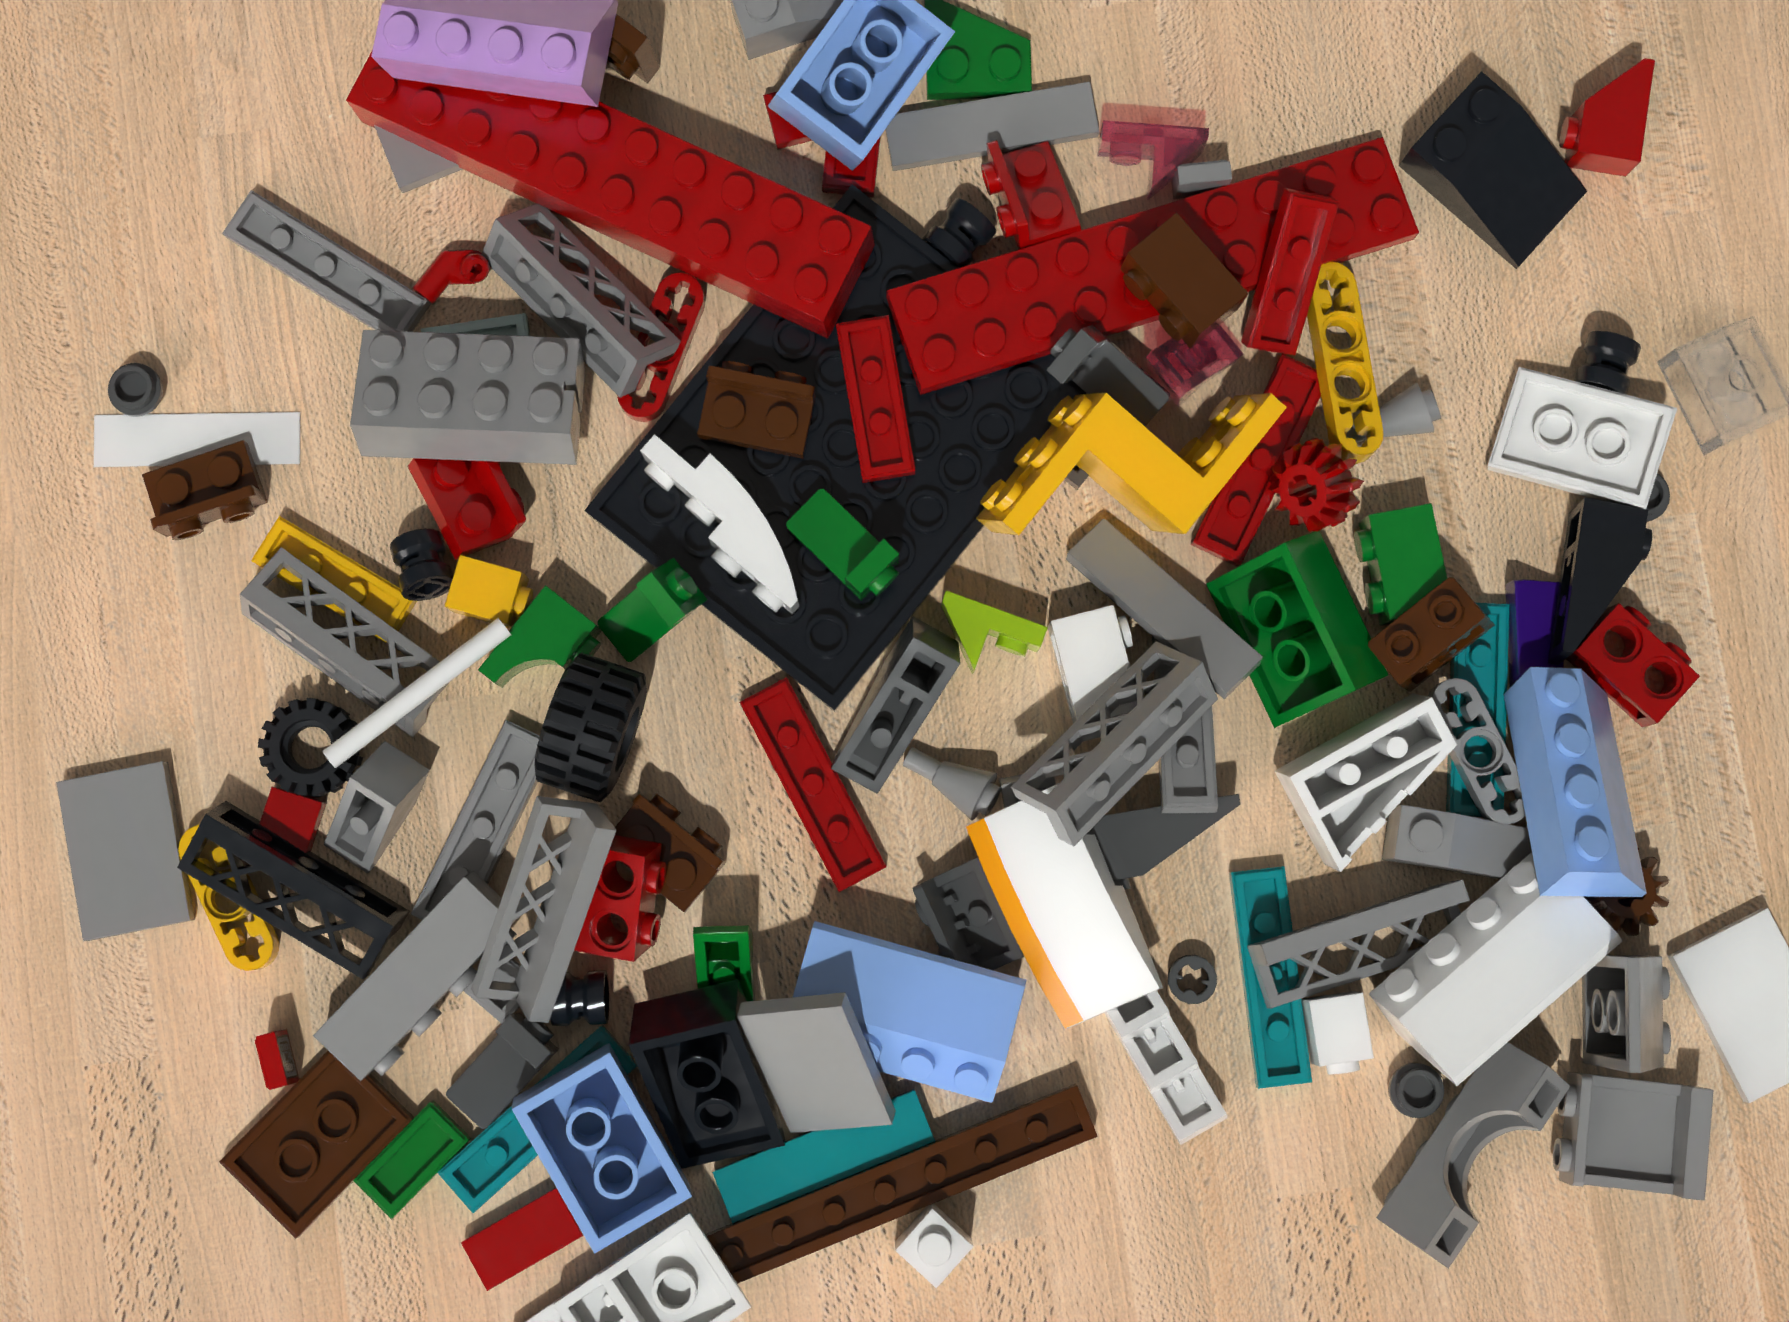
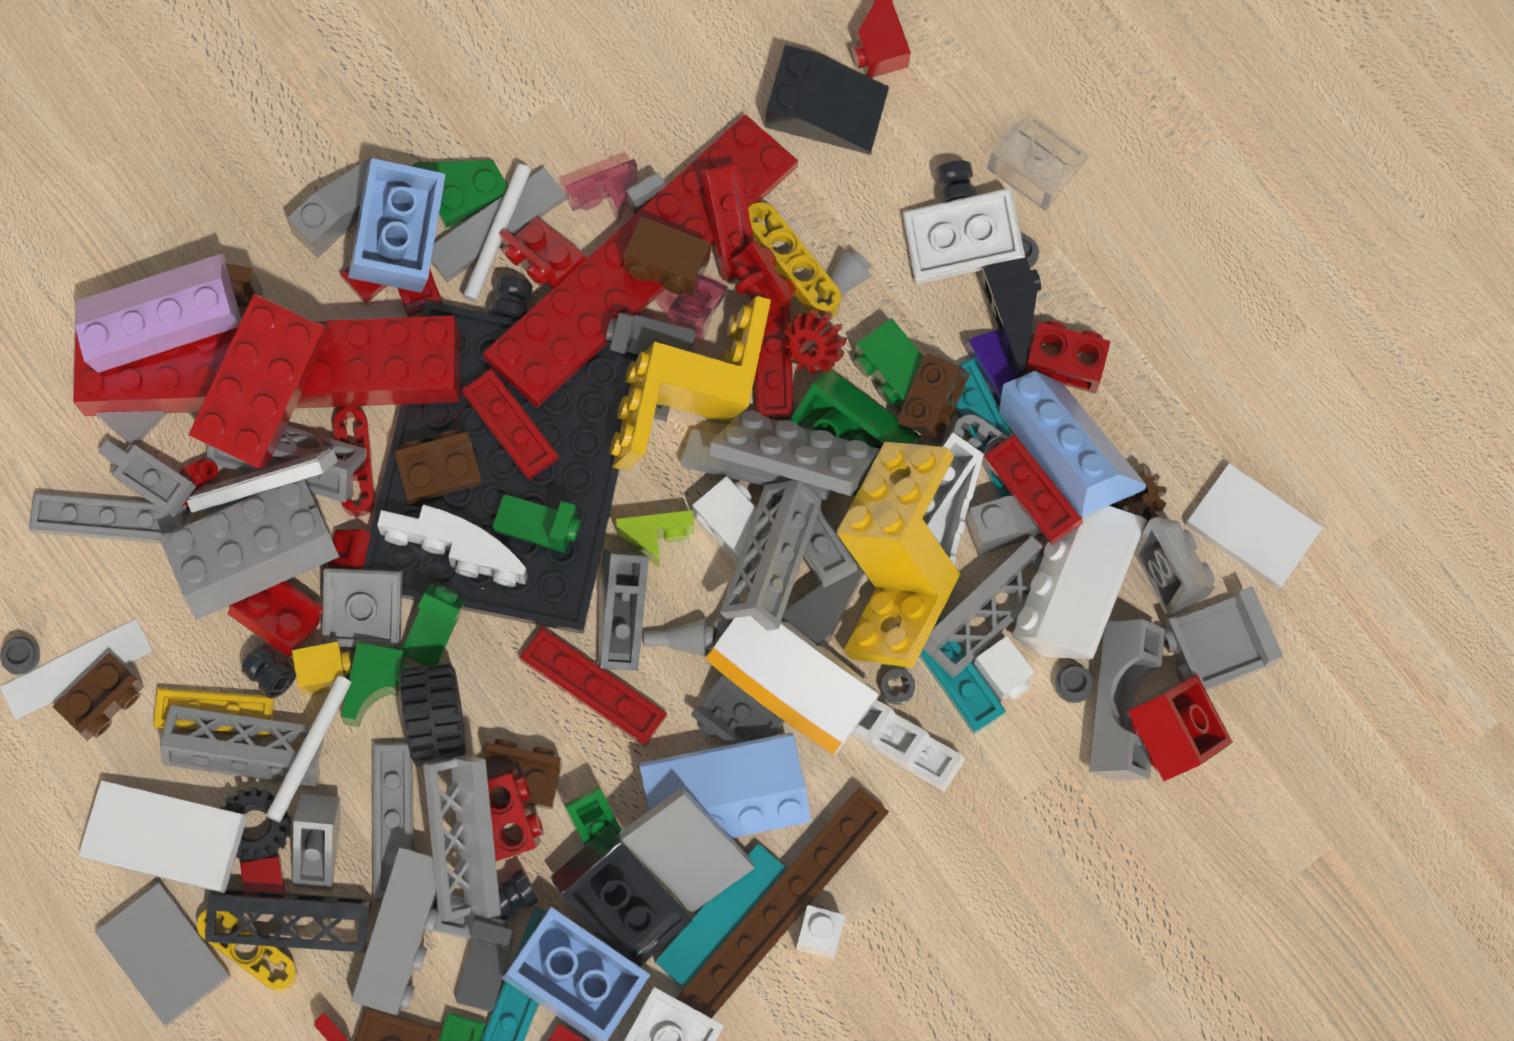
camera: 30 degrees left, 10 degrees down
(191, 708) = (163, 836): none -> white tile
(395, 241) = (148, 477): none -> light grey hinge
(529, 319) = (262, 480): none -> white tile
(576, 542) = (362, 607): none -> light grey tile
(580, 192) = (259, 382): none -> red brick
(599, 458) = (351, 548): none -> red tile
(994, 130) = (493, 239): none -> white bar
(1217, 622) = (795, 452): none -> light grey plate
(1280, 822) = (898, 553): none -> yellow bracket
(1289, 367) = (760, 278): none -> red hips
(1496, 824) = (1033, 489): none -> red tile
(1522, 1229) = (1180, 727): none -> red brick

